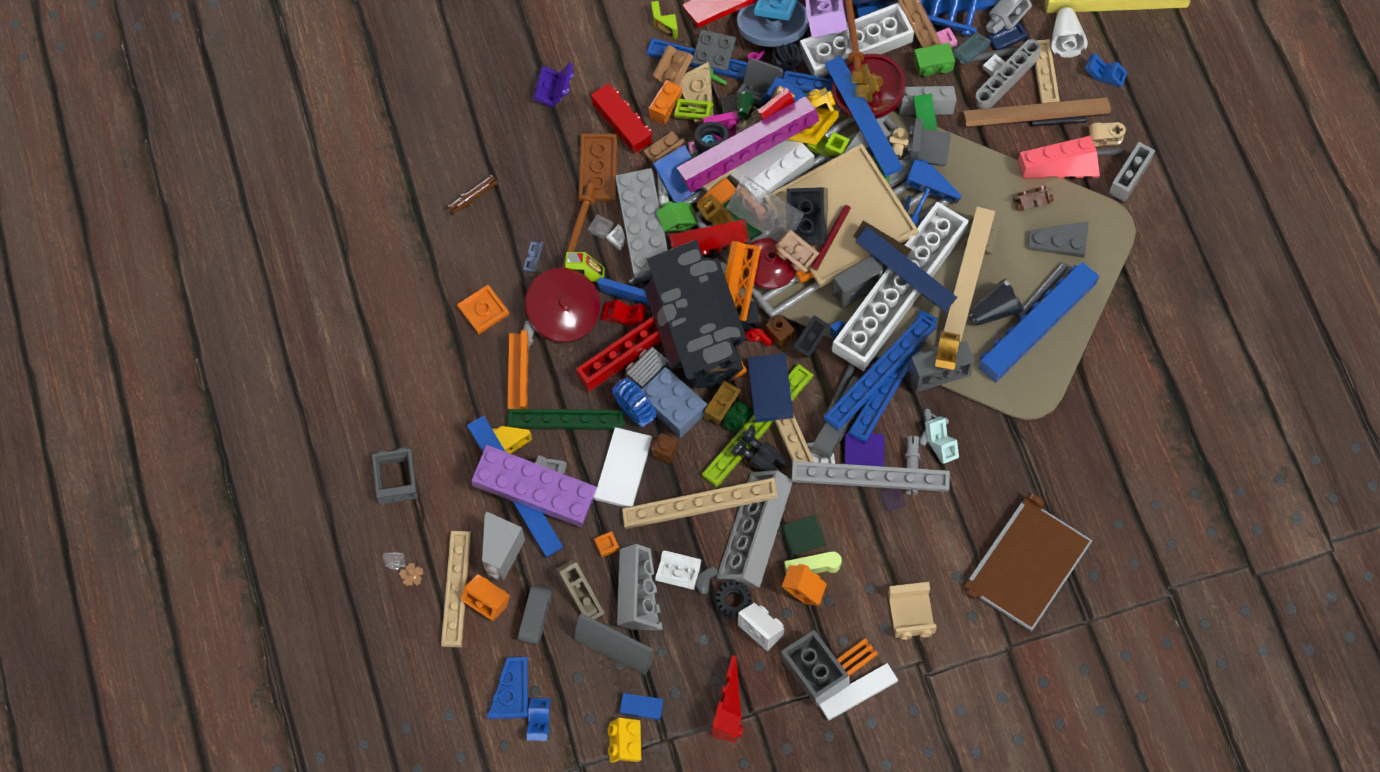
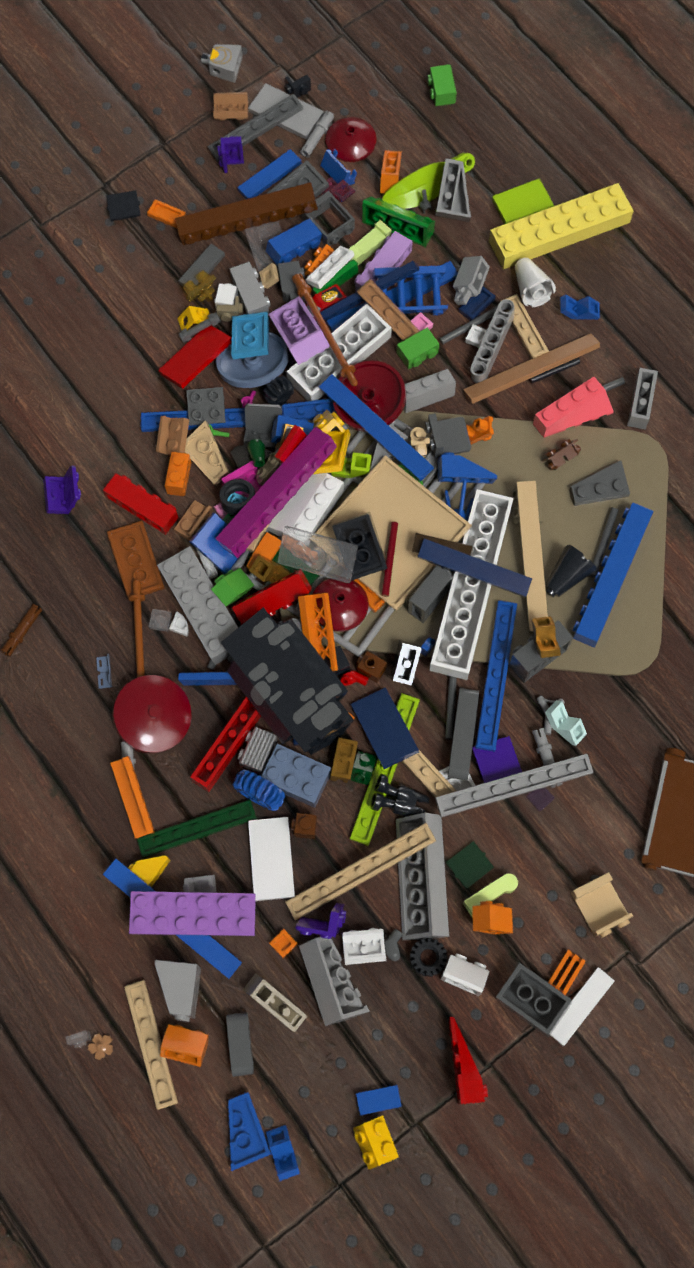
camera: 20 degrees left, 5 degrees up
(398, 493) = (55, 968): dark grey window -> none
(483, 309) = (74, 743): orange tile -> none
(583, 261) = (156, 662): slope -> none
(613, 644) = (329, 1049): dark grey slope -> none
(620, 313) = (214, 701): red slope -> none
(661, 536) = (325, 929): none -> dark purple bracket
(664, 23) = (149, 394): lime slope -> none
(705, 112) = (223, 470): lime tile -> none
(796, 250) = (362, 584): medium nougat bracket -> none
(869, 82) = (370, 392): clear yellow hips -> none
(880, 372) = (484, 678): blue tile -> none
(925, 110) = (431, 403): green tile -> none
(962, 151) = (480, 430): none -> orange hips
(971, 48) = (448, 325): clear light blue tile -> none
(1105, 133) = (604, 368): tan piece -> none

